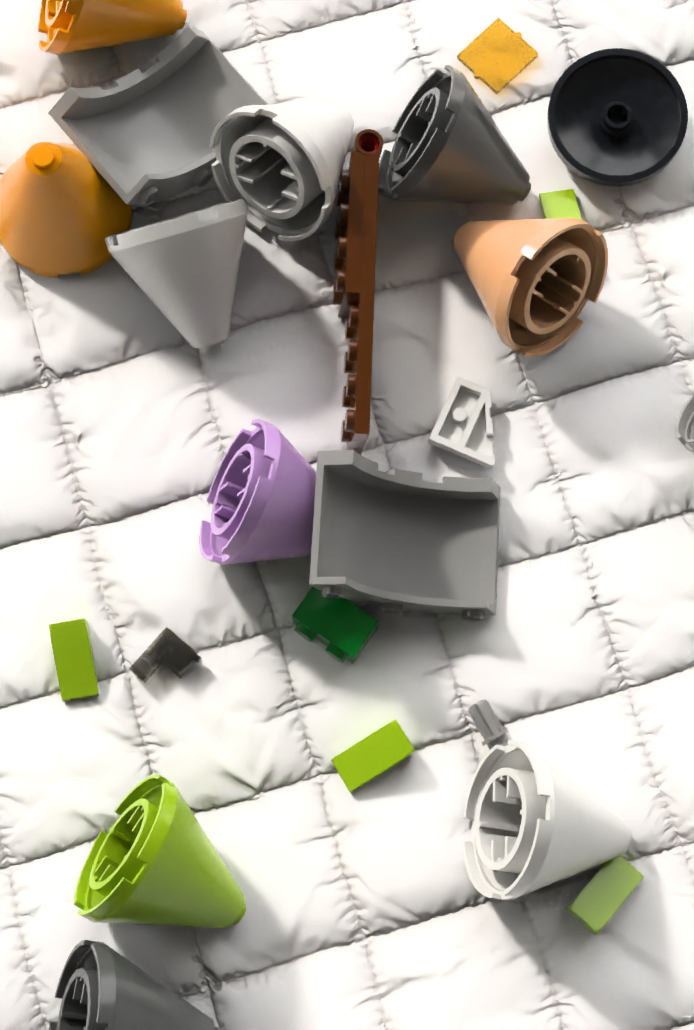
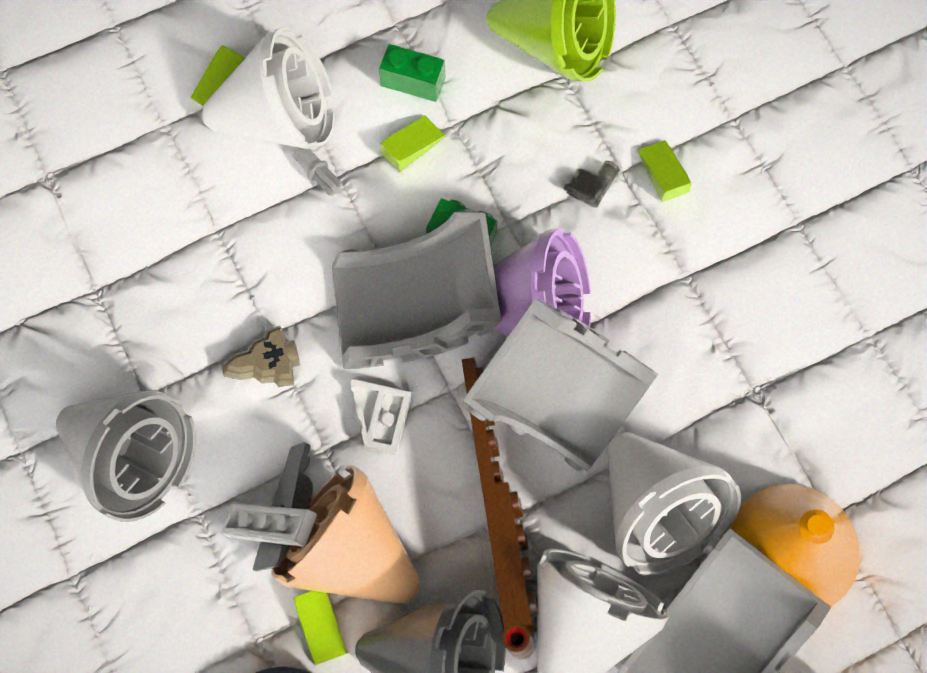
camera: 170 degrees right, 5 degrees down
(261, 377) = (560, 385): none -> light grey panel
(356, 845) = (412, 72): none -> green brick
(584, 330) = (292, 492): none -> dark grey piece
(585, 509) = (266, 360): none -> dark tan rock
(605, 304) = (269, 524): none -> white tile

